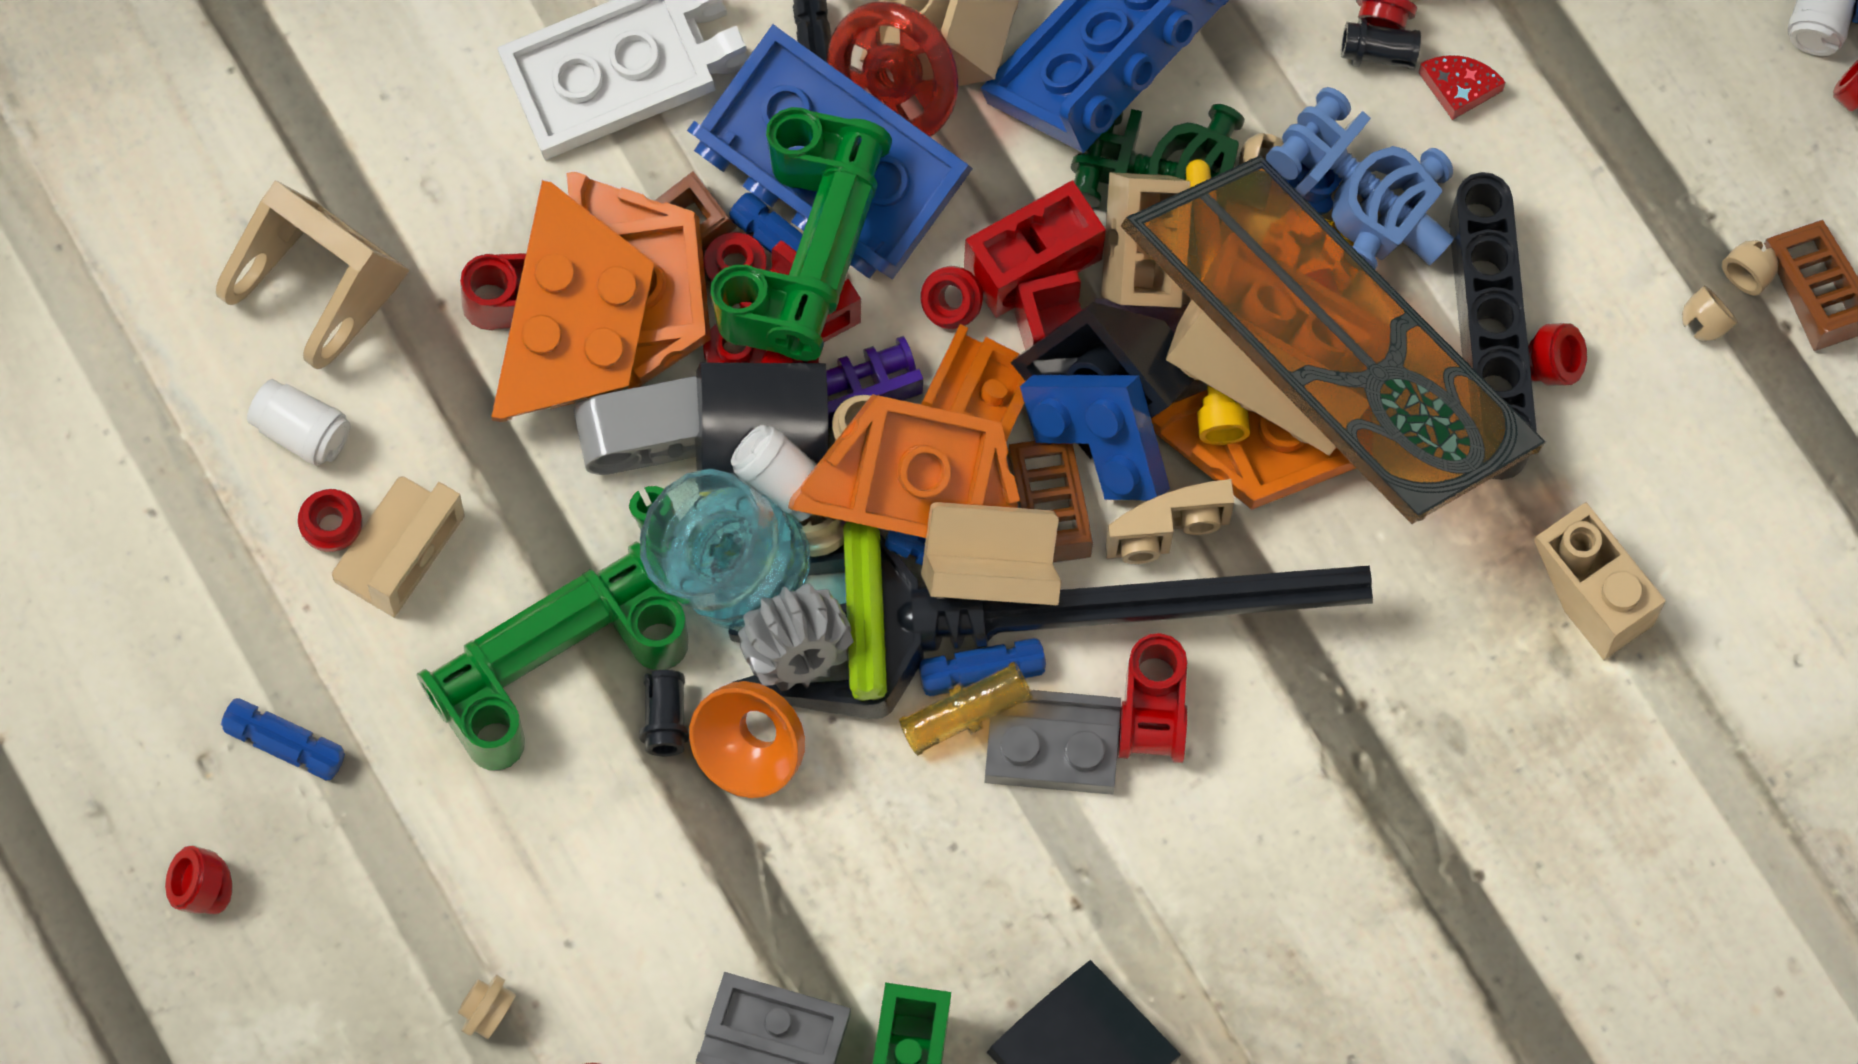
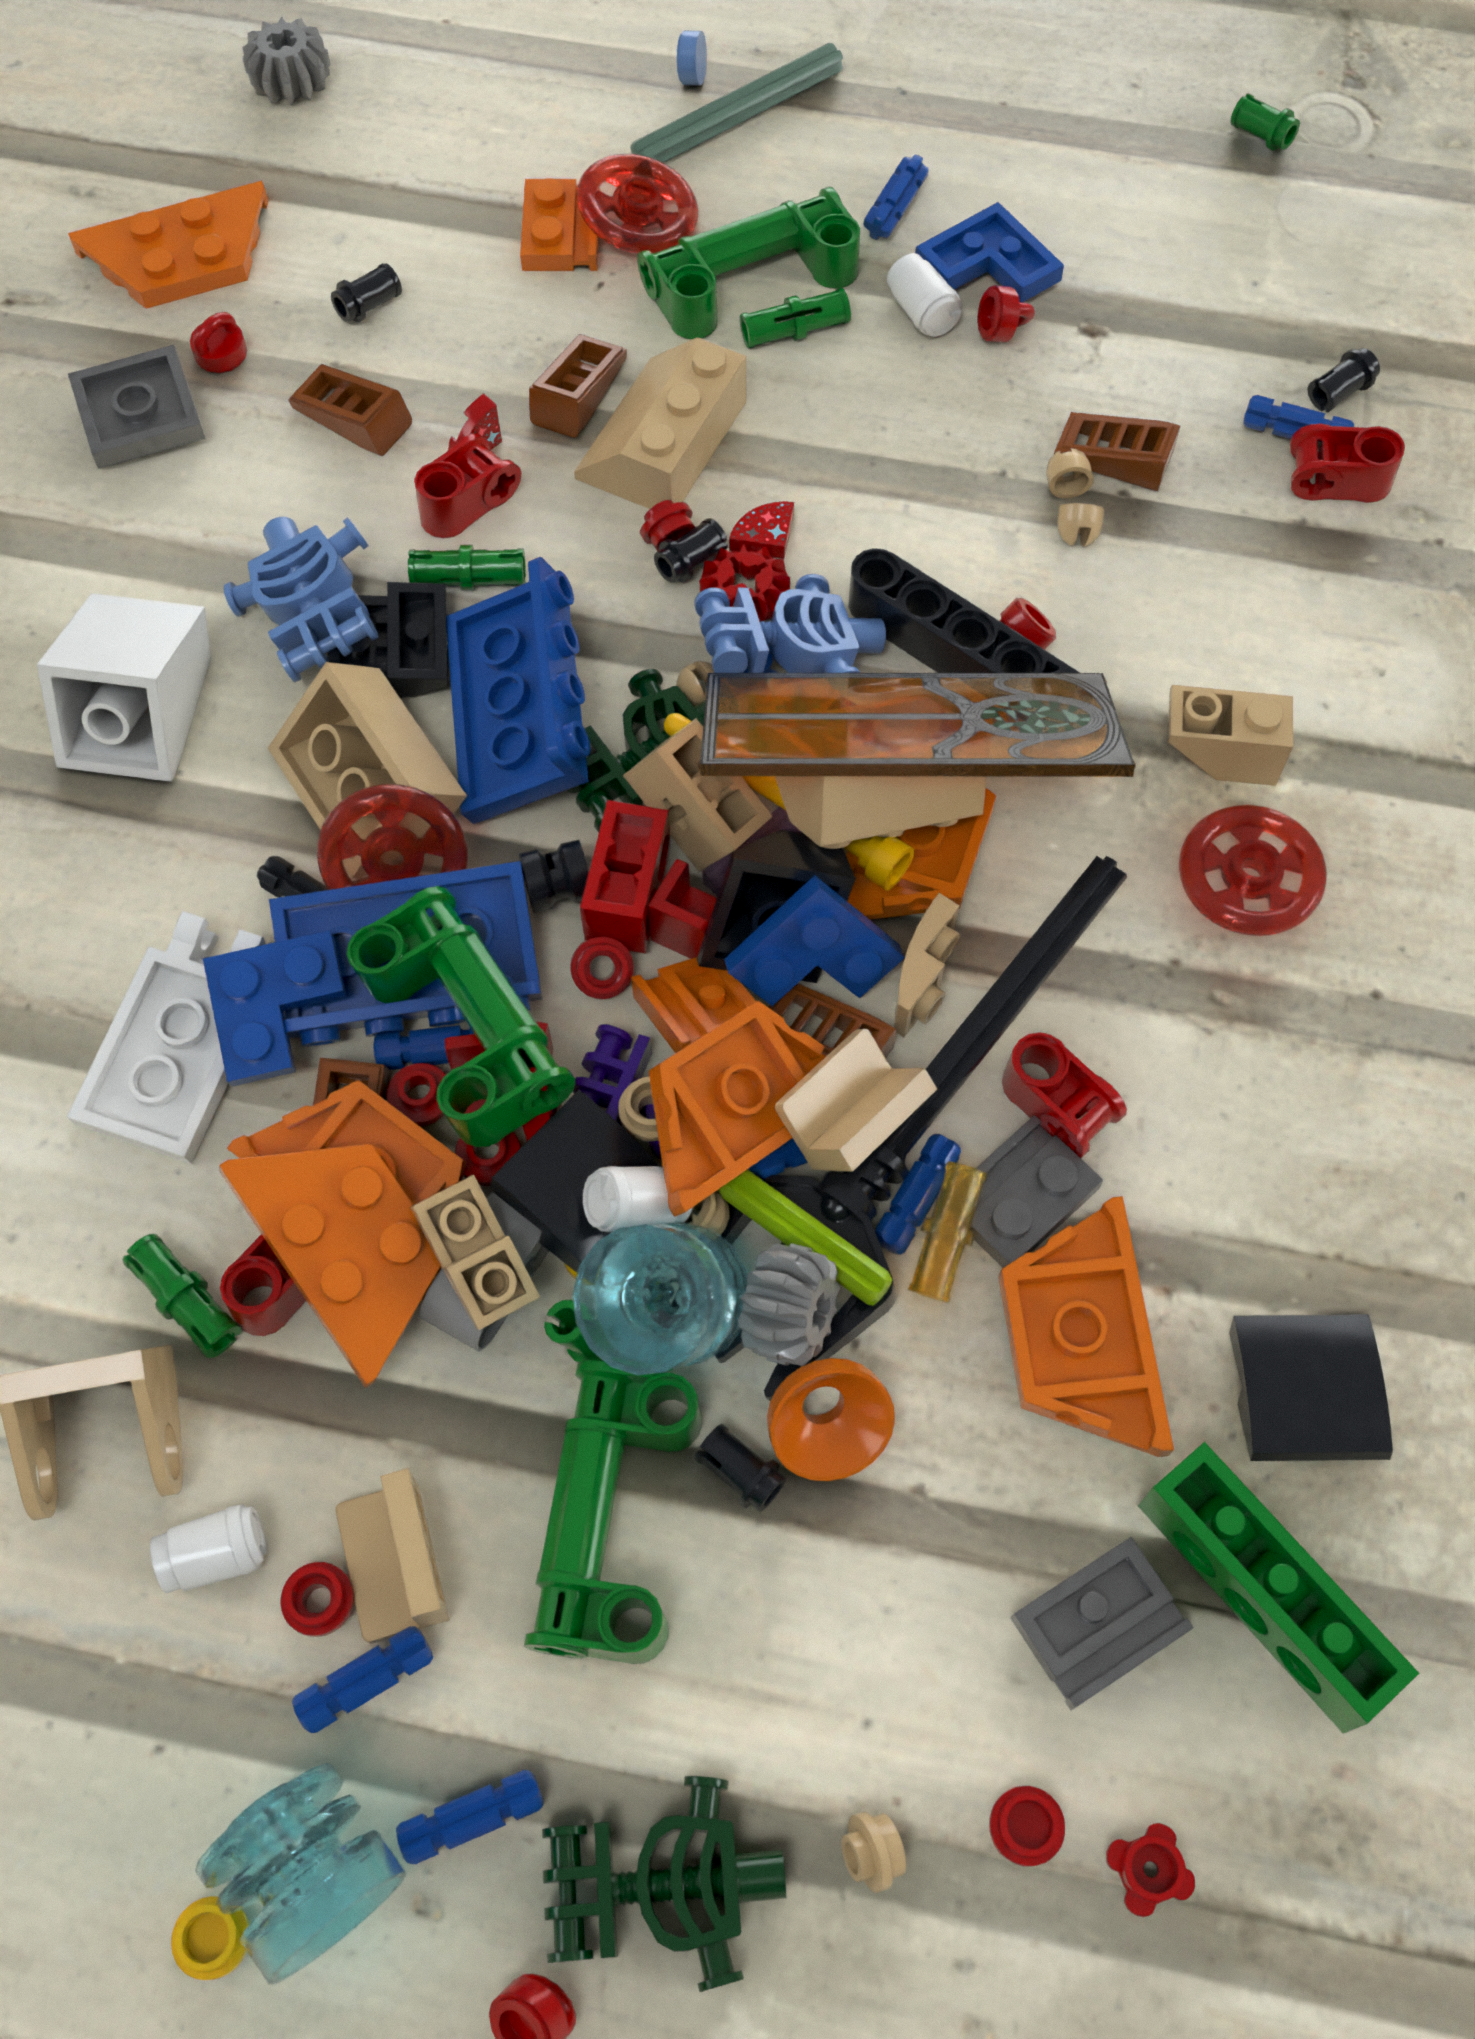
camera: 45 degrees left, 5 degrees down
(73, 648) = (208, 1942): none -> yellow plate
(156, 658) = (294, 1863): none -> clear light blue wheel
(306, 595) = (362, 1679): none -> blue axle
(382, 926) = (737, 1879): none -> dark green piece
(446, 243) = (181, 1295): none -> green pin
(643, 401) = (475, 1252): none -> tan slope
(696, 81) = (255, 988): none -> blue plate
(981, 864) = (1086, 1335): none -> orange wing
(988, 195) = (554, 875): none -> black wheel
(1410, 130) = (769, 576): none -> red gear
(1533, 663) = (1226, 906): none -> clear red plate

